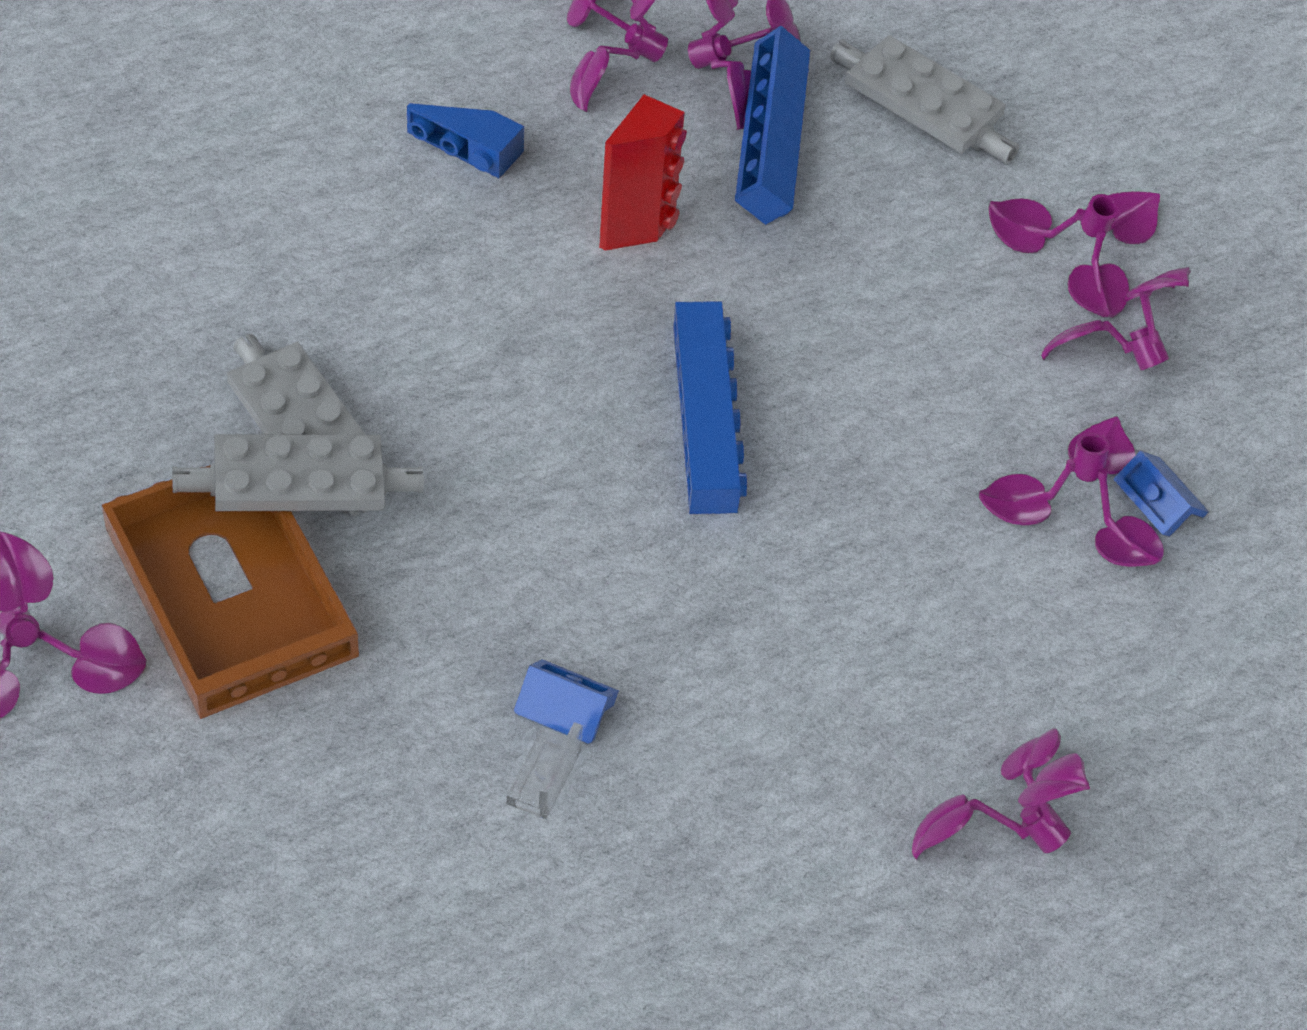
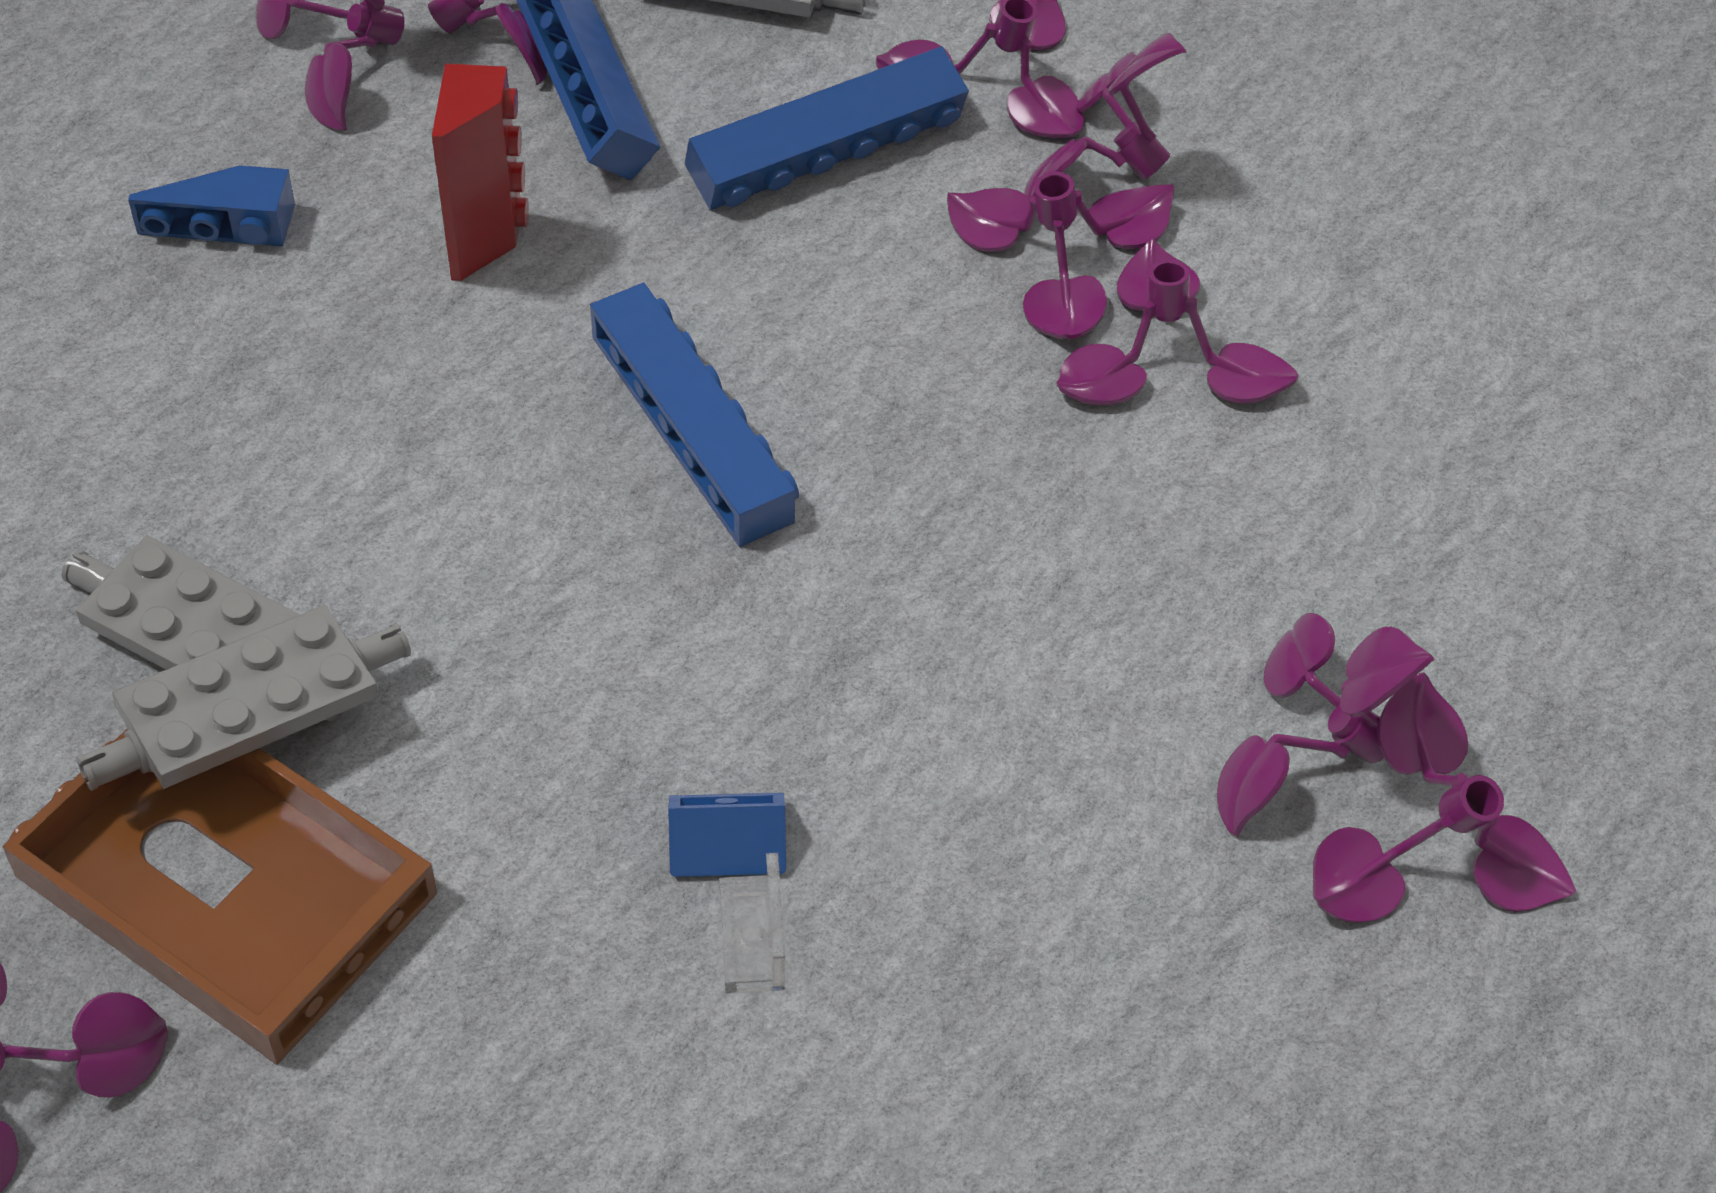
camera: 25 degrees left, 0 degrees up
(923, 241) = (825, 128): none -> blue brick
(1028, 441) = (1062, 307): none -> magenta plant
(1086, 847) = (1427, 735): none -> magenta plant
(1158, 492) = (1247, 306): blue panel -> none

